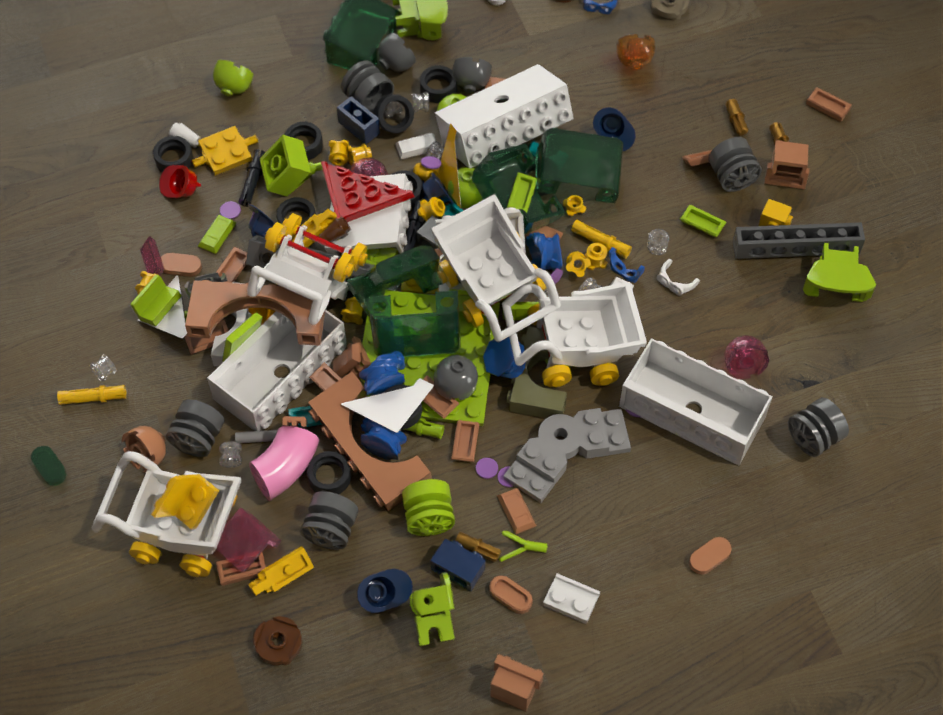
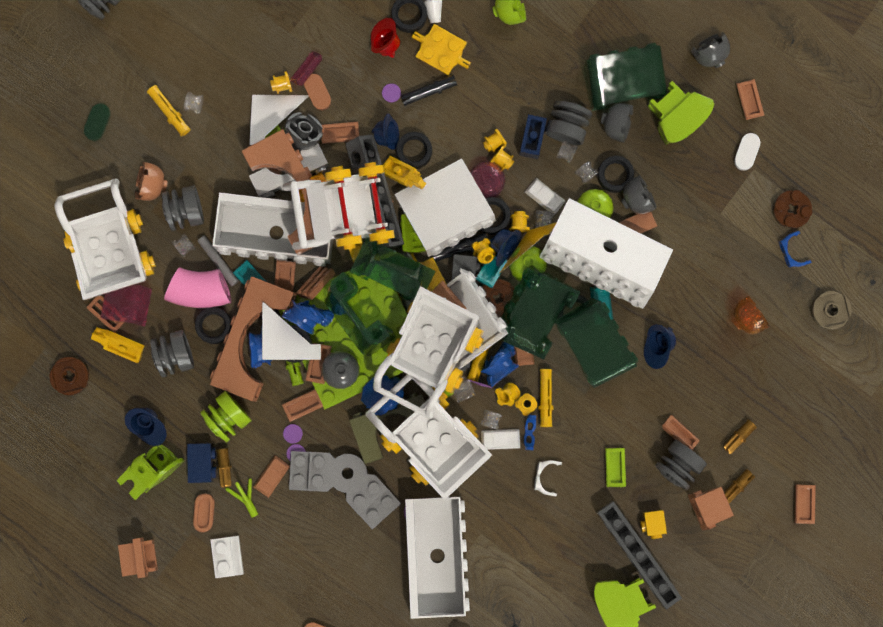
camera: 55 degrees right, 25 degrees up
(155, 301) = (270, 100): lime panel -> none
(187, 499) = (111, 255): yellow bracket -> none
(217, 234) = (362, 99): lime tile -> none
(241, 334) = (268, 194): lime tile -> none
(287, 166) = (450, 114): lime piece -> none
(295, 420) = (224, 280): nougat tile -> none
(310, 129) = (491, 91): black tyre -> none
(336, 229) = (411, 195): reddish brown cone -> none
(347, 360) = (307, 278): nougat tile -> none
(360, 194) = (454, 188): red tile -> none
(409, 113) = (561, 150): black tyre -> none
(431, 162) = (527, 222): medium lavender piece -> none
(522, 192) = (540, 314): lime tile -> none
(574, 200) = (570, 357): yellow plate -> none
(654, 245) = (568, 444): clear wheel -> none
(746, 357) = (504, 570): clear pink cylinder -> none

